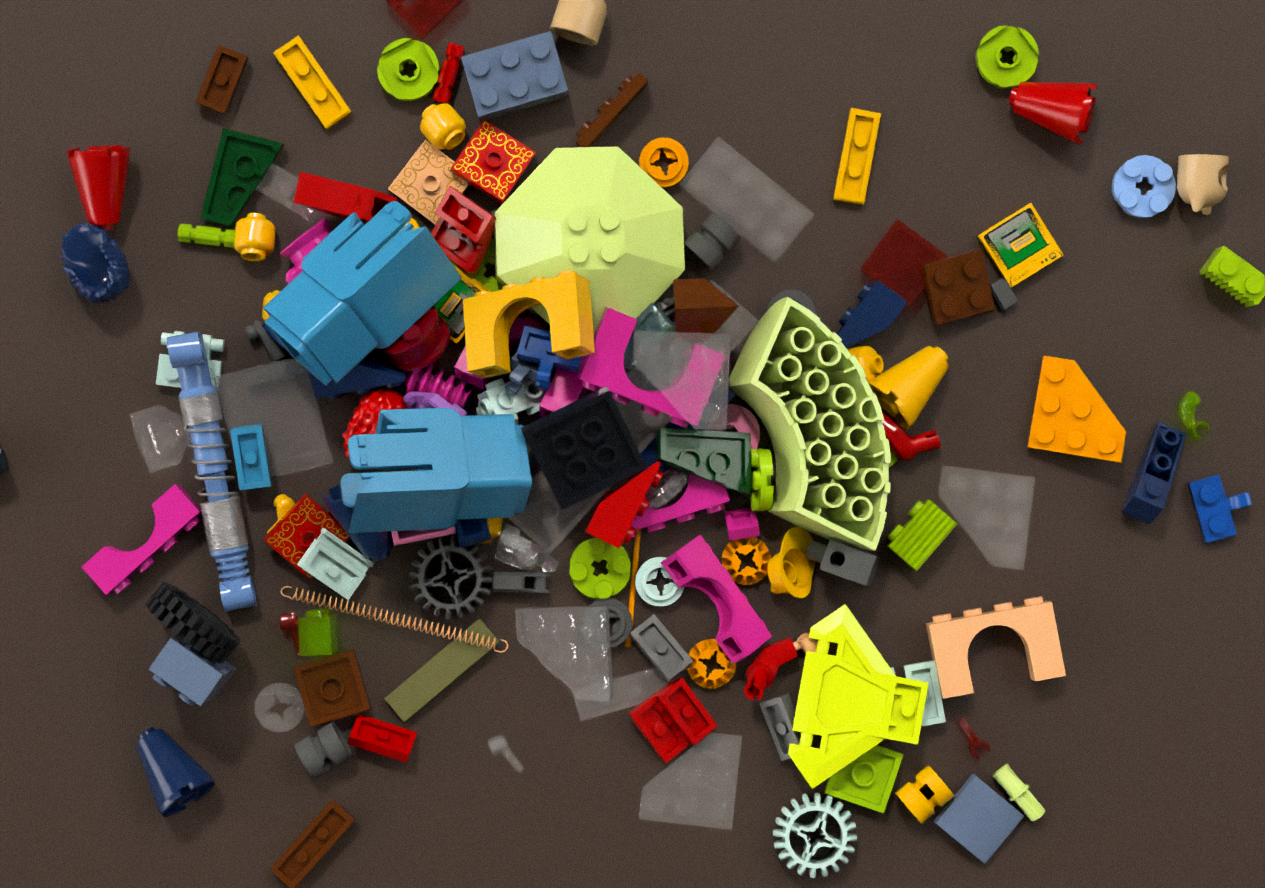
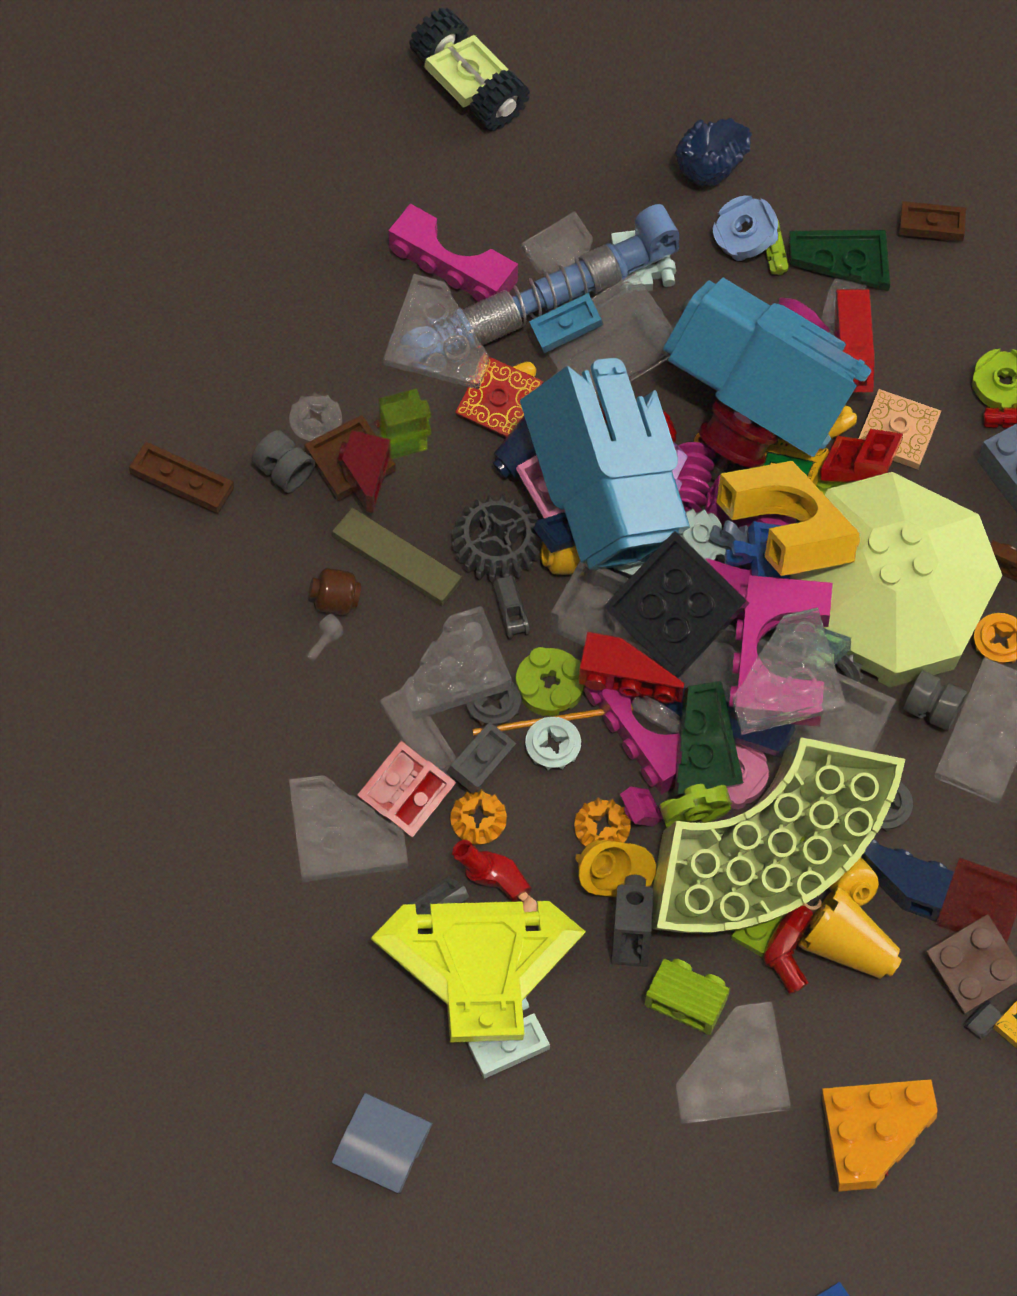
camera: 80 degrees right, 25 degrees down
(101, 181) = (795, 138): red cone -> none
(171, 772) = (221, 332): dark blue cone -> none
(190, 672) = (335, 313): sand blue brick -> none
(192, 622) = (381, 302): black tyre -> none
(197, 244) = (755, 240): none -> light blue plate
(239, 582) = (436, 336): none -> clear plate
(254, 237) = (787, 280): yellow head -> none
(312, 82) = (959, 302): yellow tile -> none
(335, 563) = (479, 426): light aqua plate -> none
(355, 680) = (365, 465): none -> dark red slope
(362, 379) = (682, 393): dark blue slope -> none
(382, 738) = (310, 514): red plate -> none
(397, 619) = (433, 515): light nougat piece -> none
(442, 126) = (960, 421): yellow head -> none
(467, 734) = (335, 591): none -> reddish brown head
(493, 161) = (944, 470): plate -> none
(522, 552) = (545, 588): clear plate -> none
(700, 306) = (864, 682): reddish brown slope -> none
(739, 625) = (580, 768): dark pink arch -> none
(809, 849) = (332, 969): light aqua gear -> none
(867, 779) = (398, 1006): lime plate -> none
(917, 802) = (394, 1071): yellow wheel -> none
(972, 737) = (472, 1115): clear red hand -> none
(1019, 792) = (424, 1179): yellowish green axle -> none
(1033, 623) = (582, 1059): light nougat arch -> none
(1154, 474) = (837, 1237): dark blue slope -> none
(1186, 412) = (921, 1258): clear neon green arm -> none

